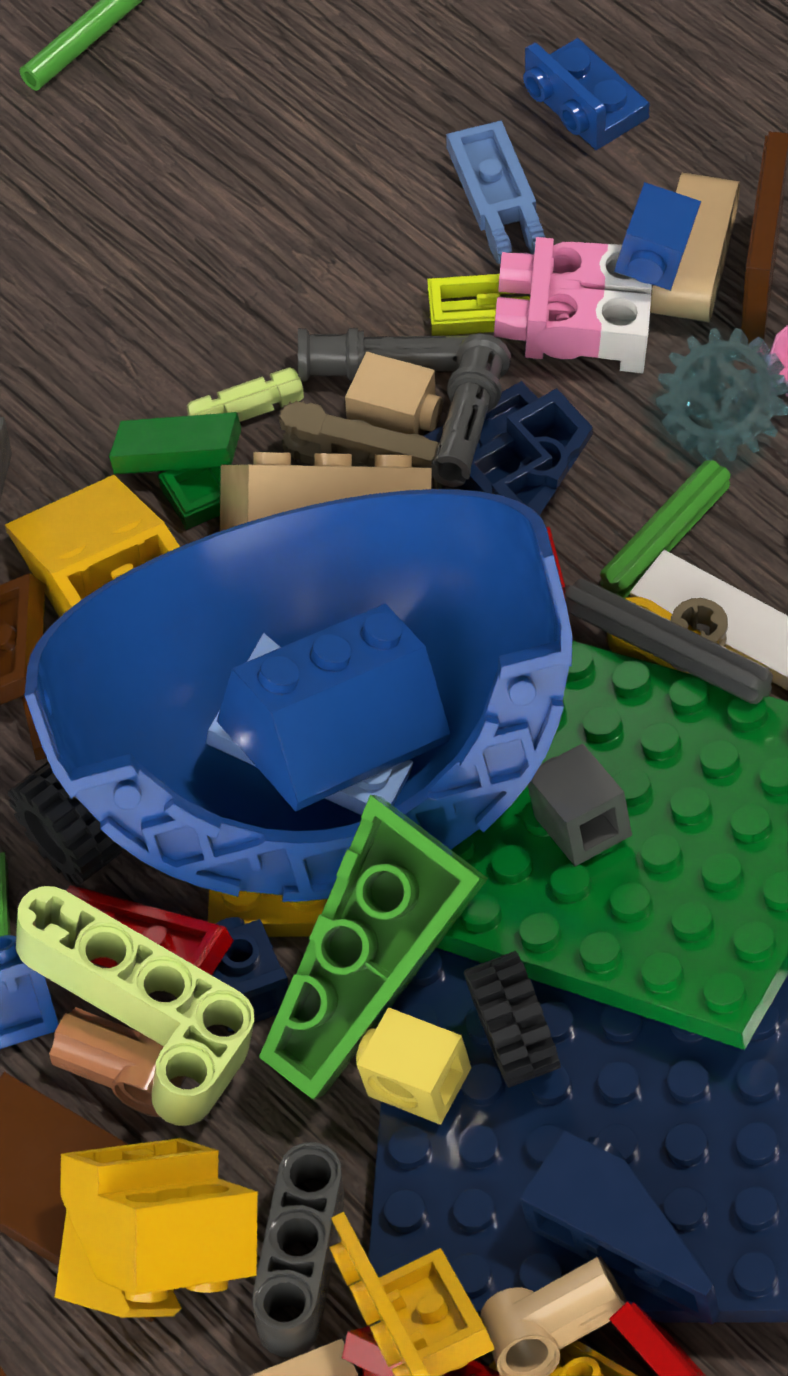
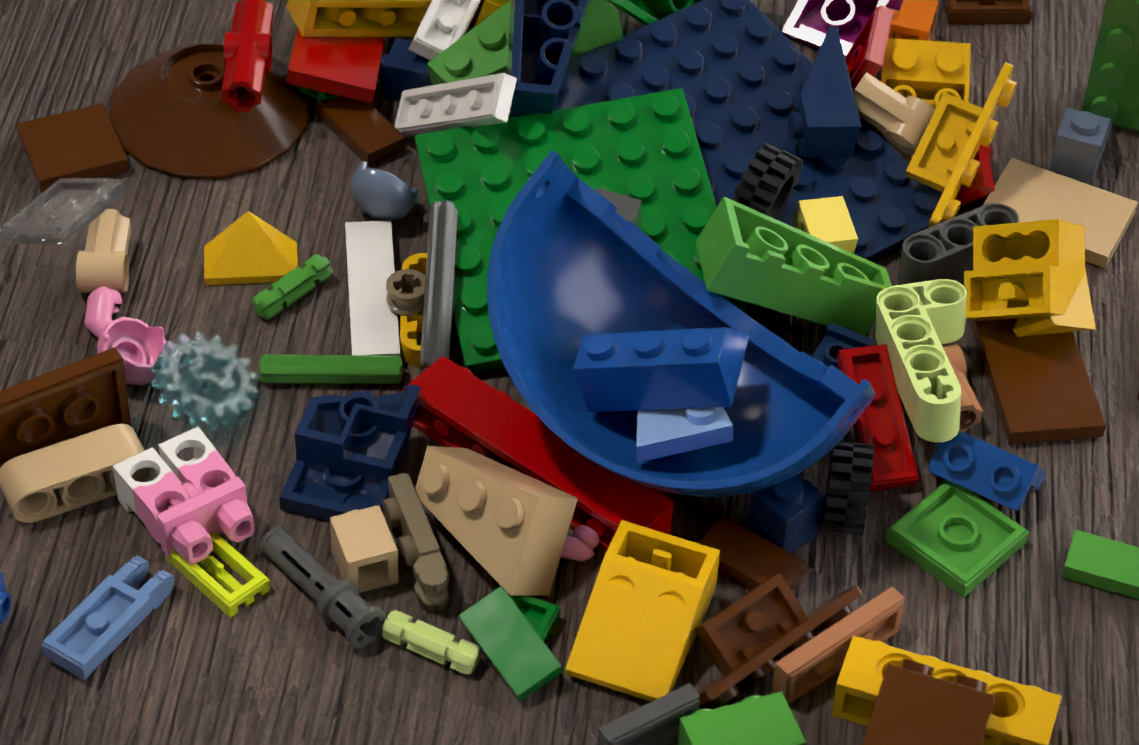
camera: 135 degrees left, 10 degrees down
(473, 393) = (326, 492): dark grey pin -> none
(657, 236) = (120, 442): blue brick -> none

